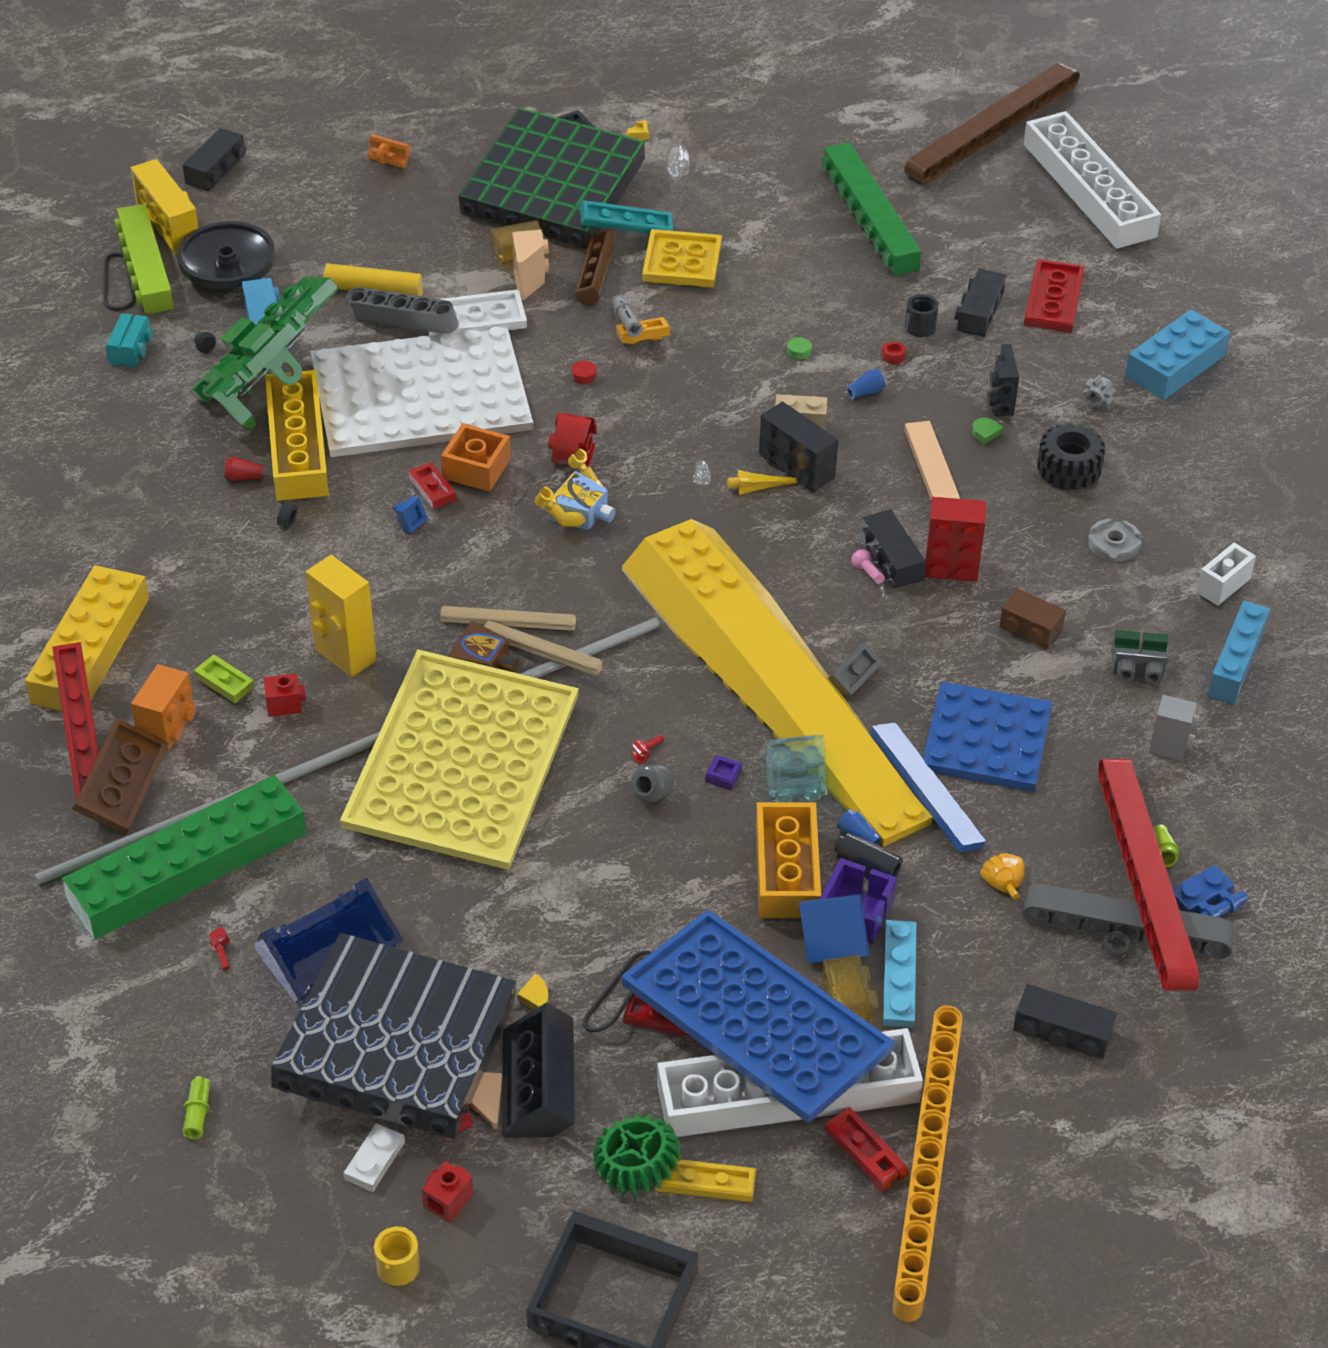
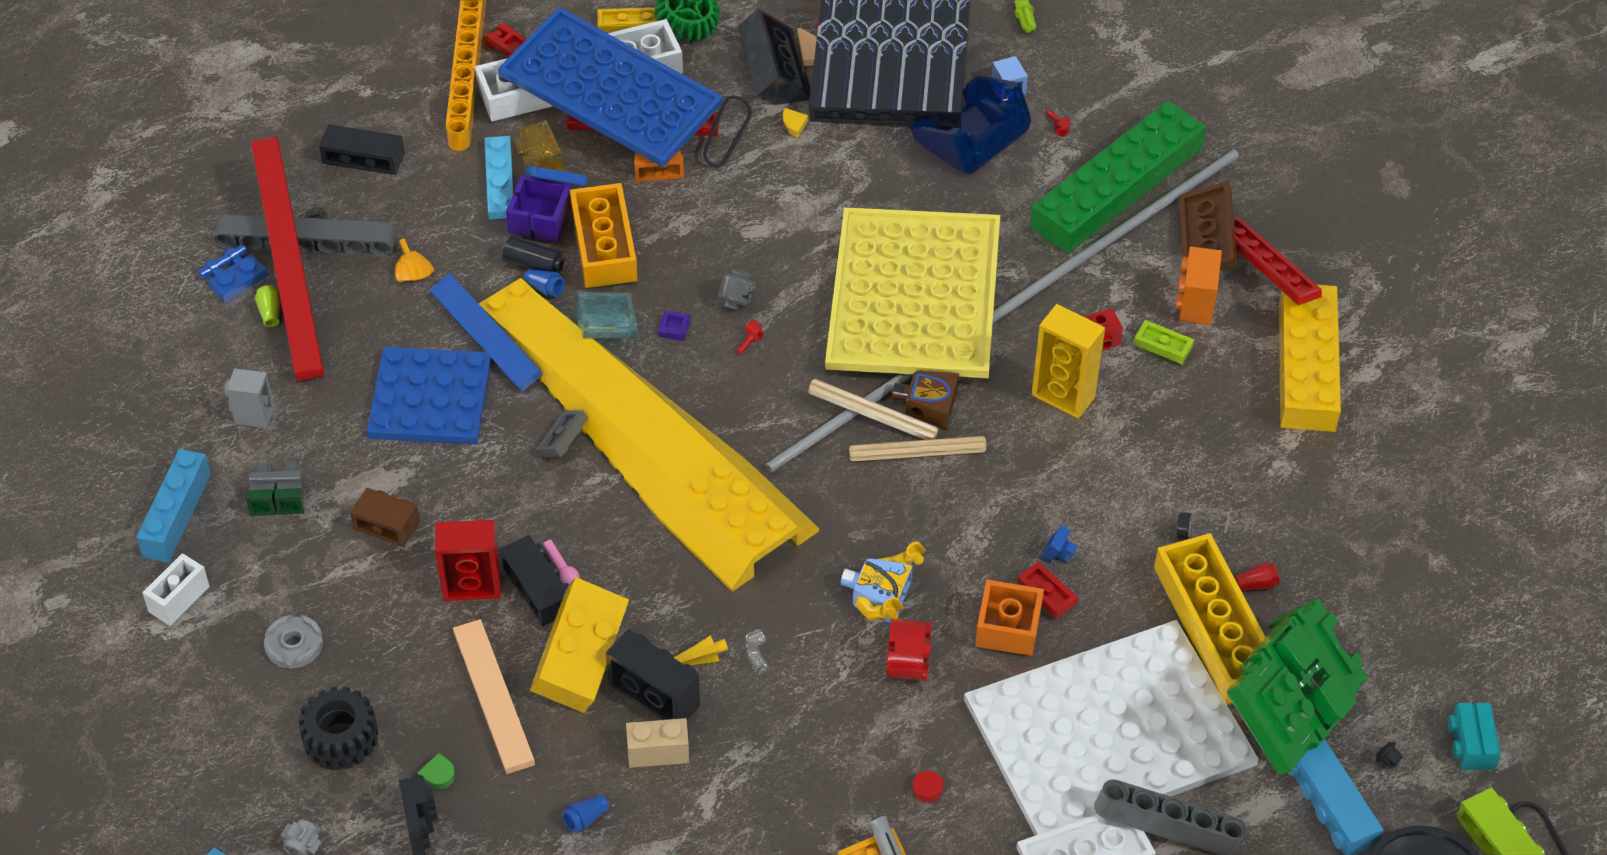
camera: 170 degrees right, 5 degrees up
(256, 1005) = (1010, 70): none -> light blue brick
(858, 476) = (578, 645): none -> yellow brick

